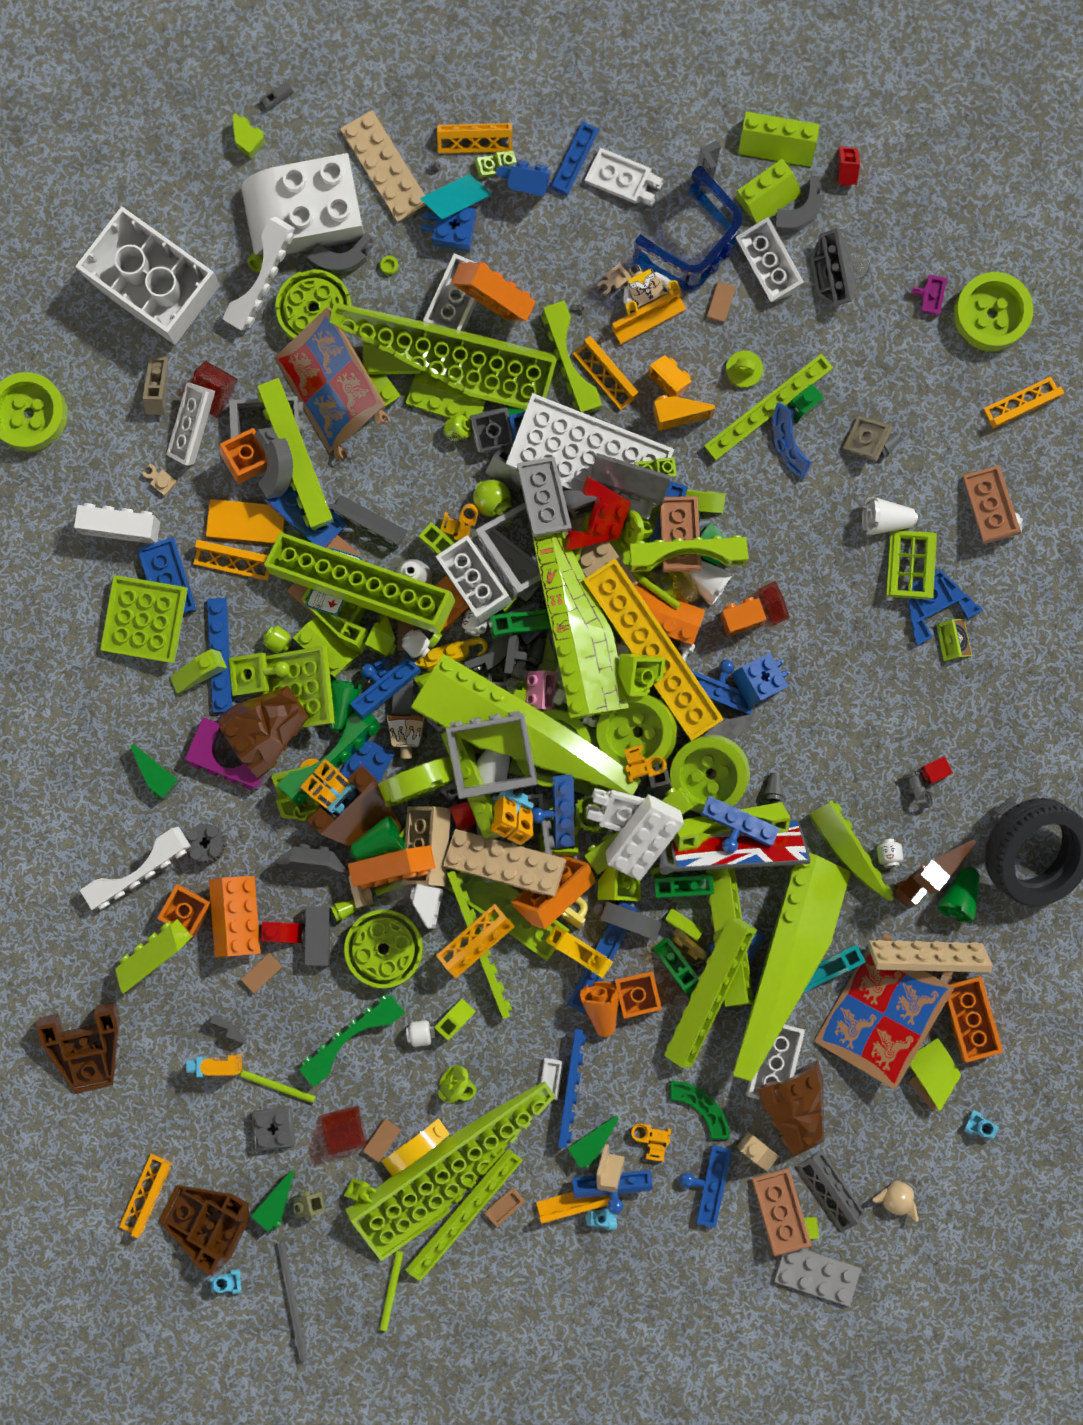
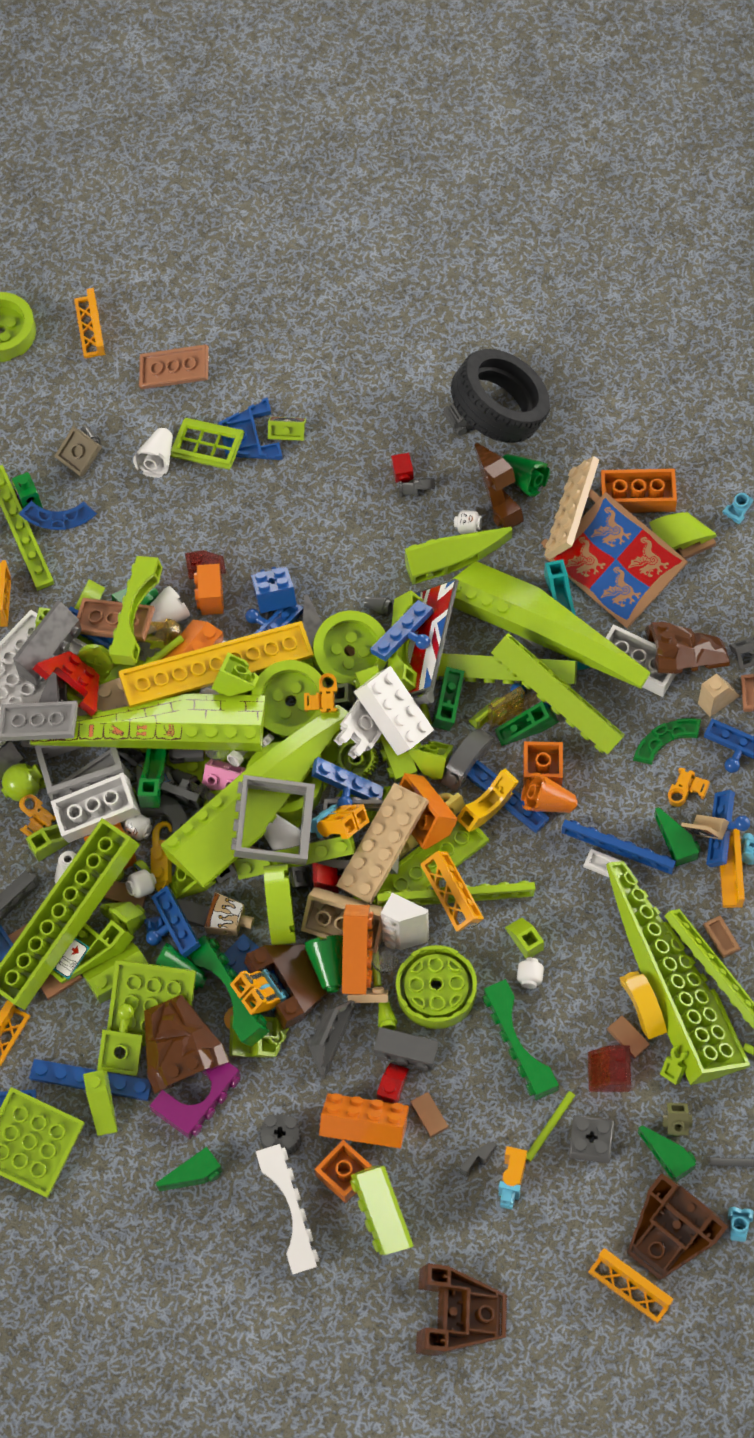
camera: 70 degrees left, 20 degrees down
(276, 639) = (93, 1018): lime head -> none
(454, 1084) = (588, 950): lime tile -> none

